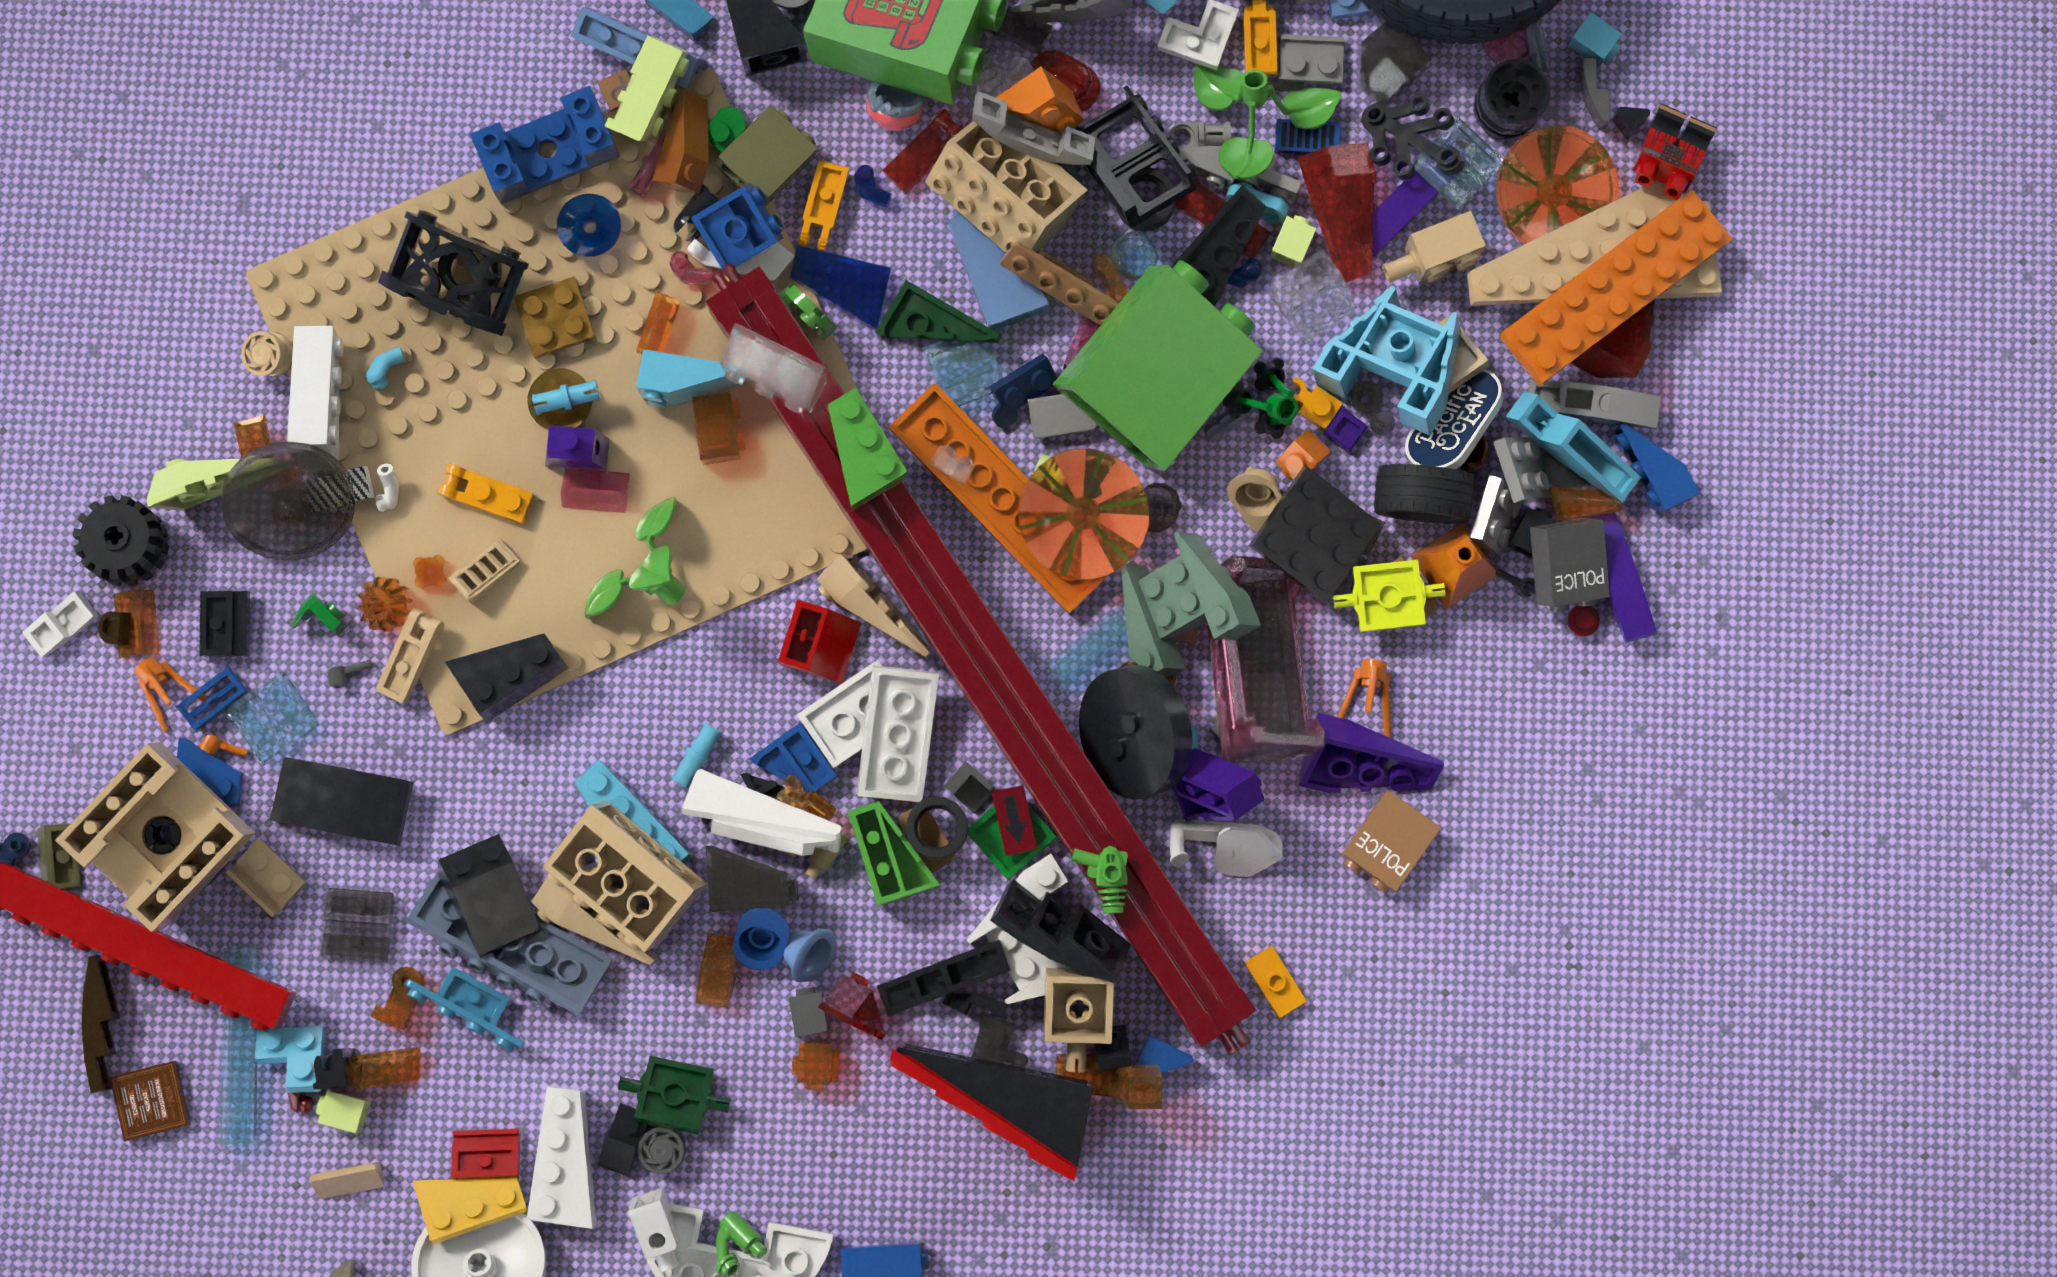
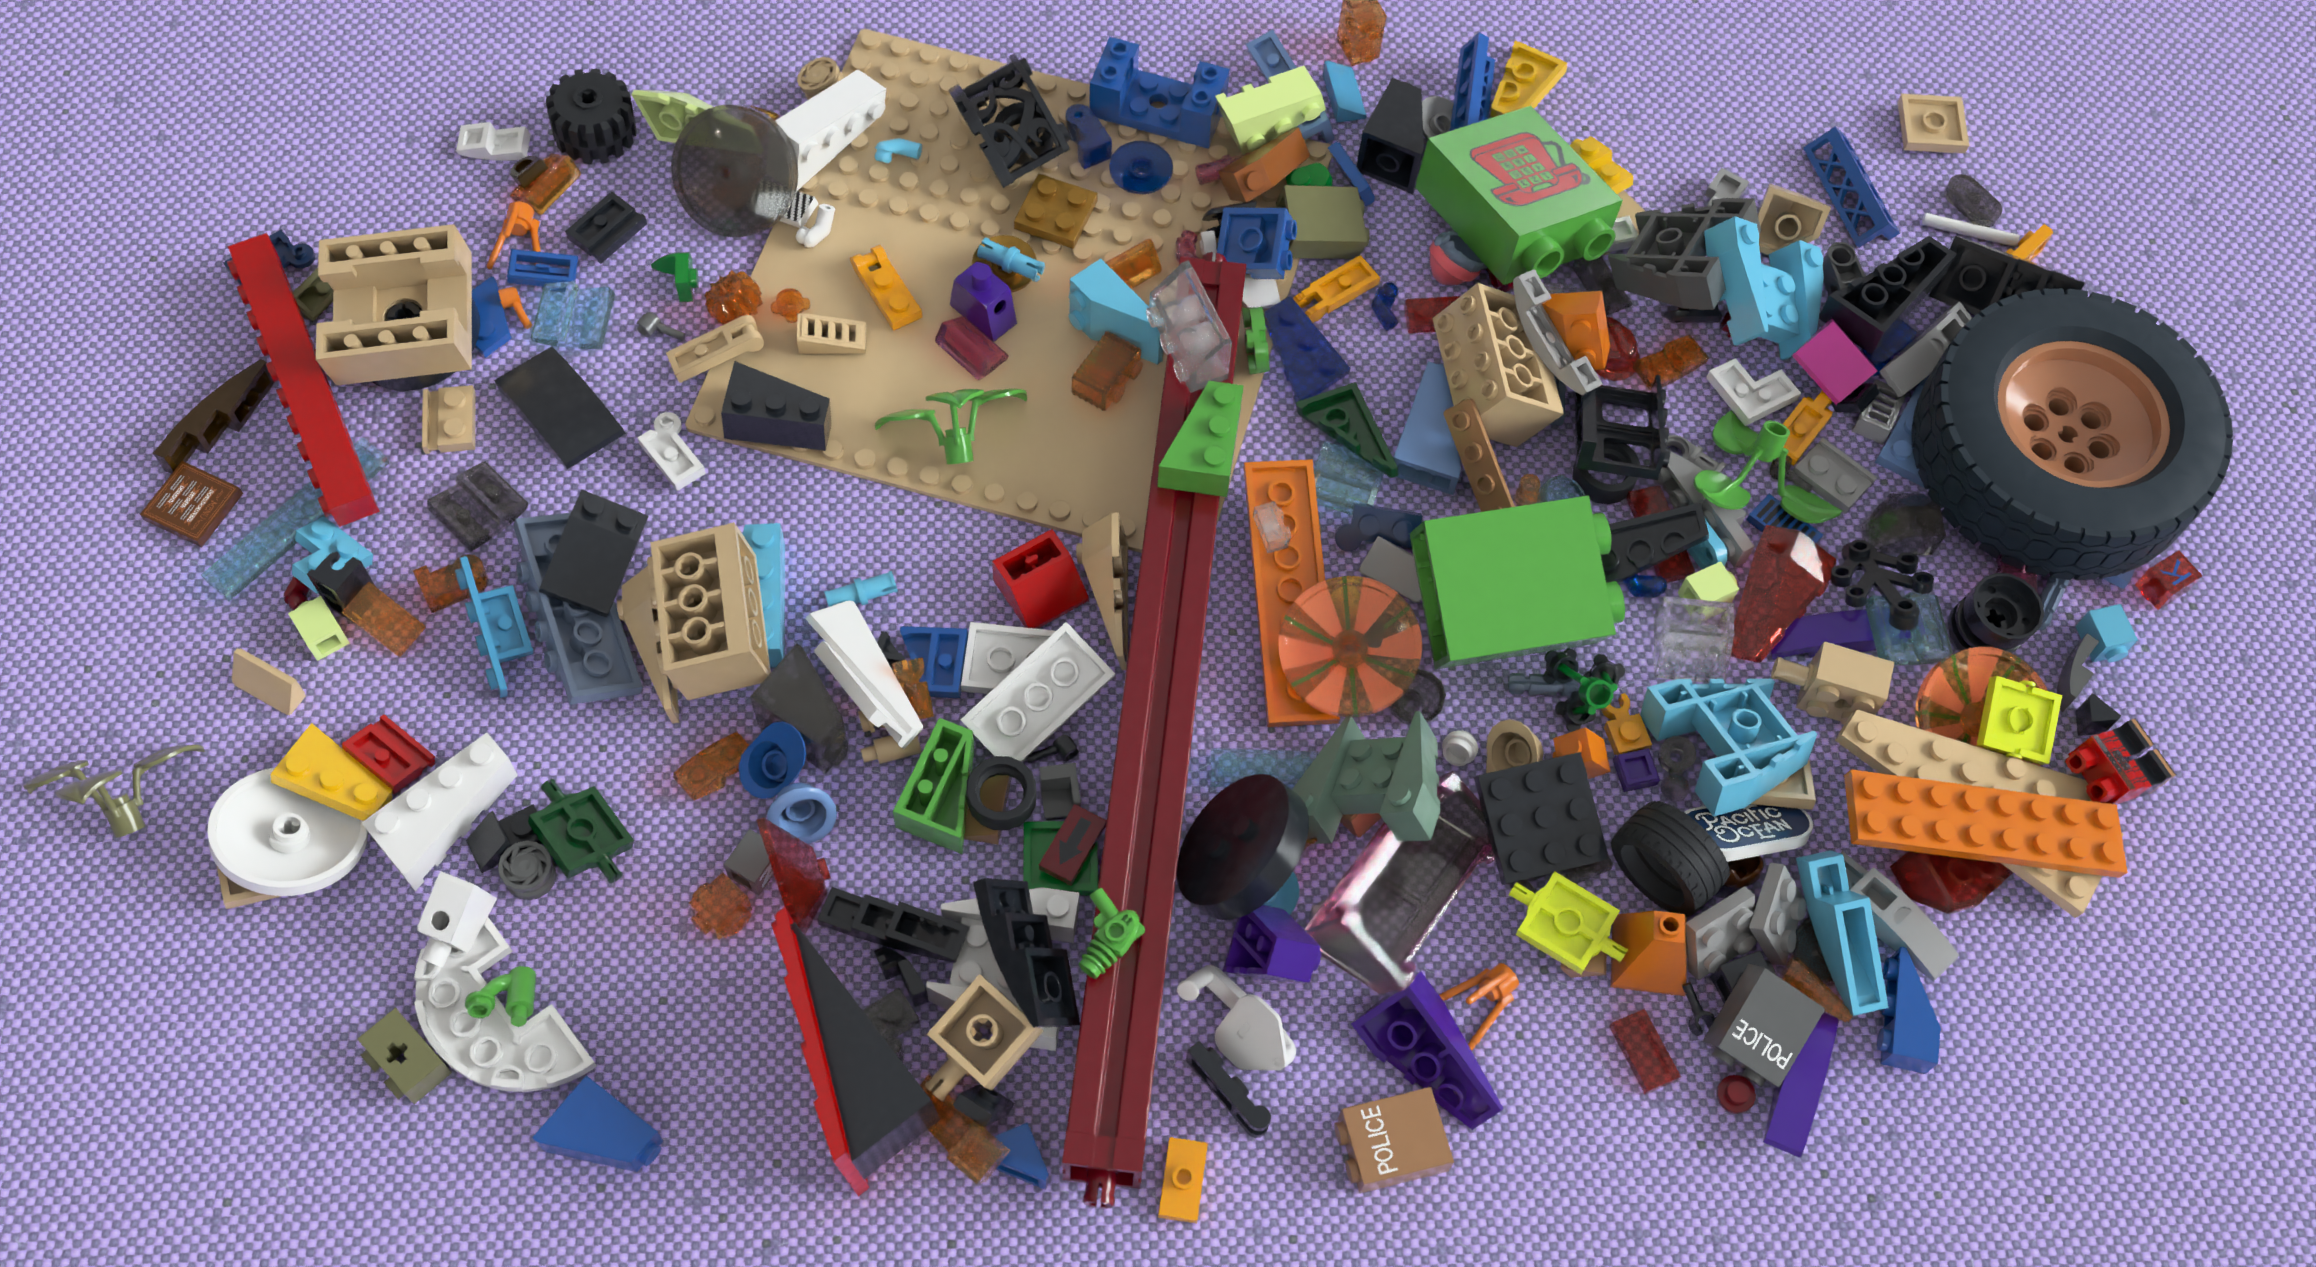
camera: 35 degrees right, 20 degrees down
(455, 765) = (671, 452): none -> white hinge
(513, 224) = (1089, 134): none -> clear blue leg
(750, 88) = (1351, 173): none -> blue tile
(942, 750) = (1062, 745): none -> black hand
(1121, 58) = (1672, 362): none -> clear orange slope
(1213, 518) = (1459, 748): none -> white plate
(1258, 899) = (1228, 1090): none -> black plate
(1502, 638) = (1644, 1051): none -> clear red tile
(1584, 177) = (2019, 720): none -> neon yellow plate

